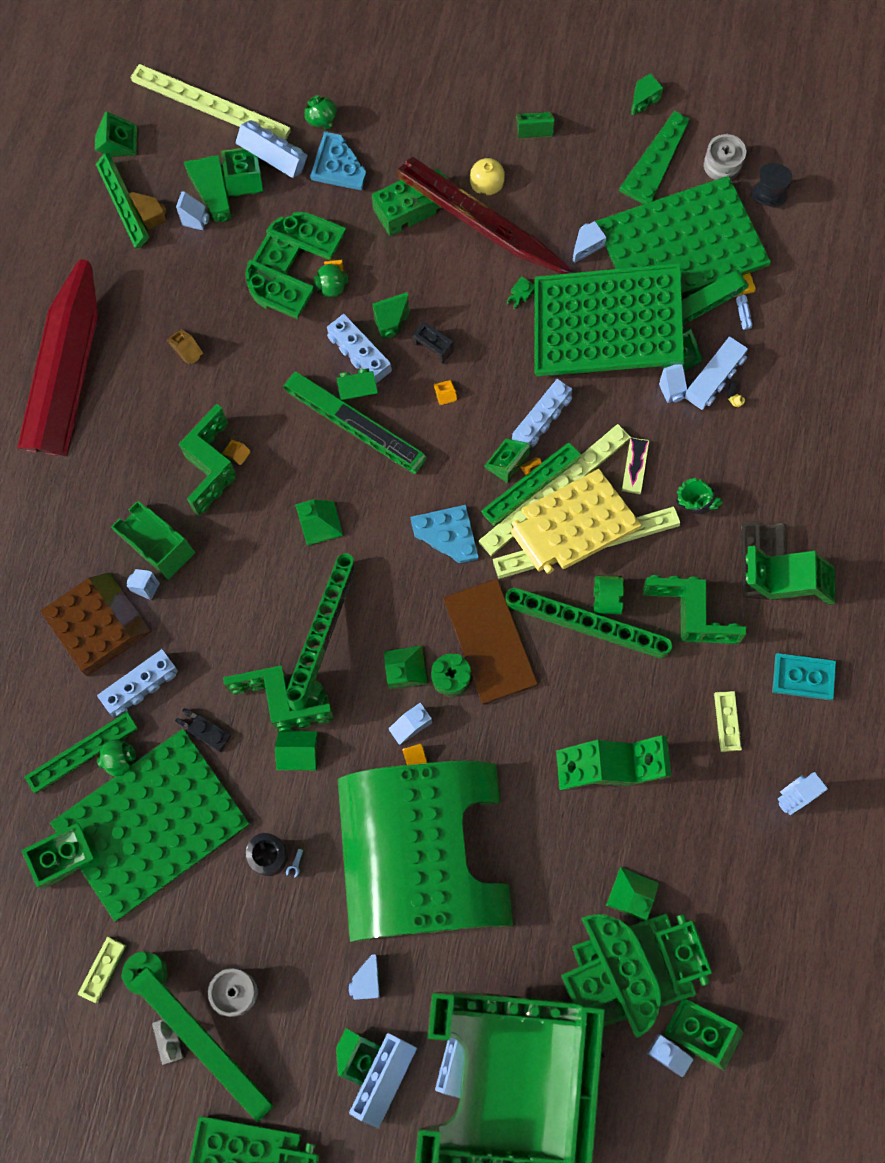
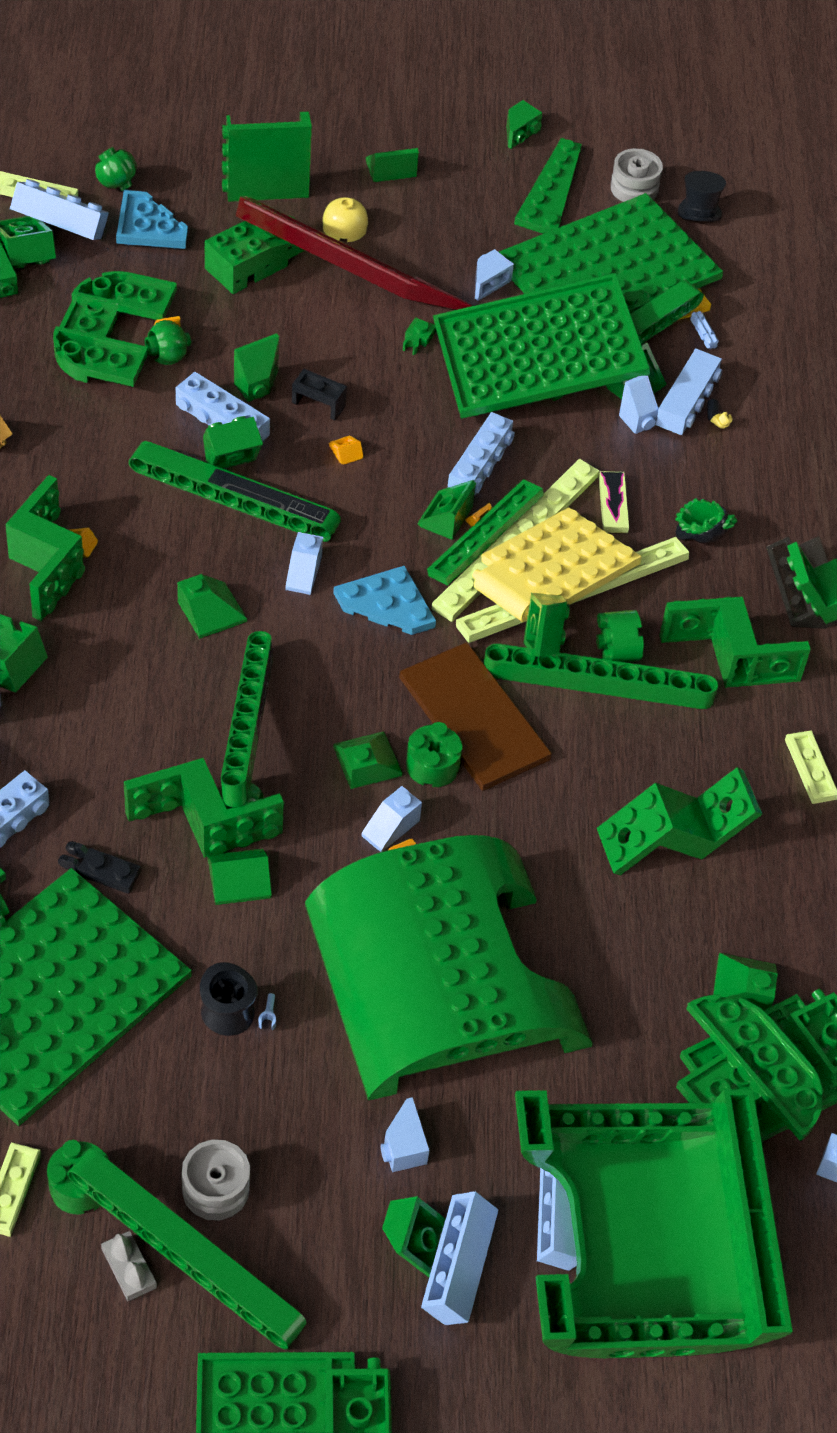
camera: 20 degrees left, 20 degrees down
(392, 494) = (304, 563): none -> light blue slope
(432, 122) = (267, 159): none -> green panel
(552, 582) = (545, 624): none -> green slope

